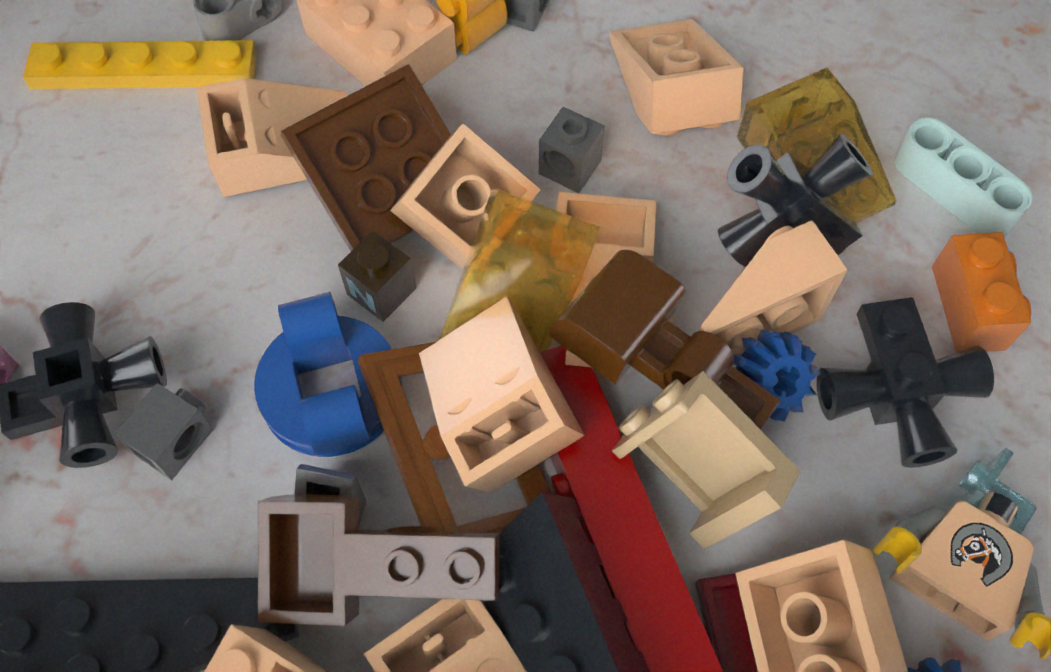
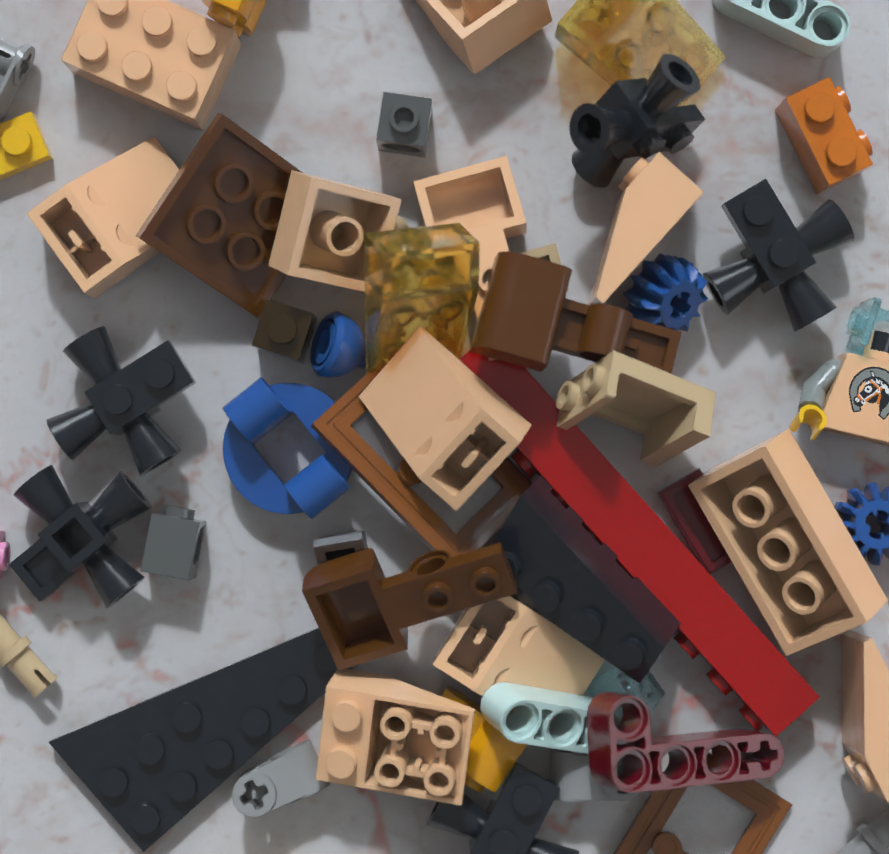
camera: 20 degrees left, 25 degrees up
(192, 278) = (122, 399): none -> black brick
(423, 309) = (337, 346): none -> blue brick

